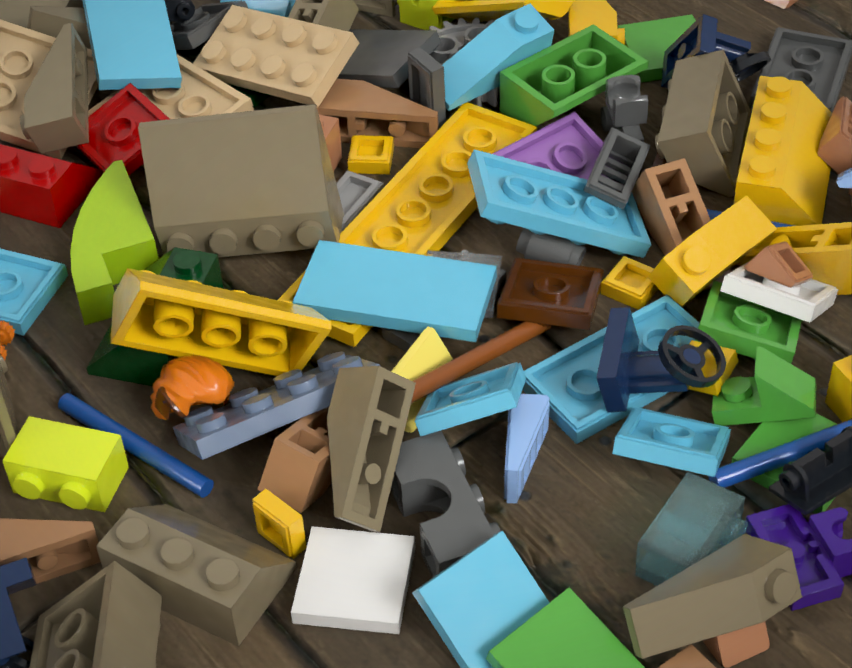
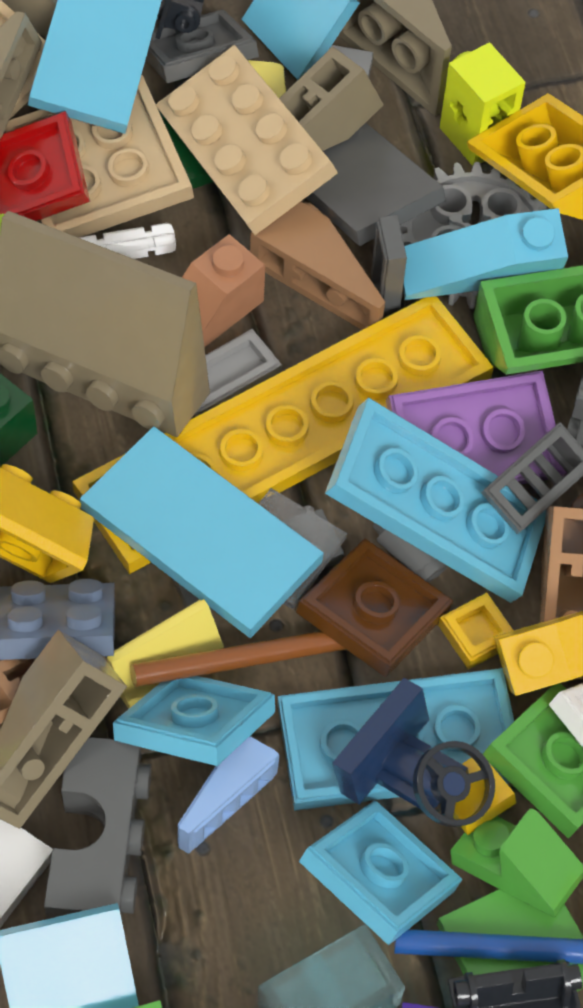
camera: 20 degrees right, 15 degrees up
(371, 154) = (293, 315): yellow tile -> none

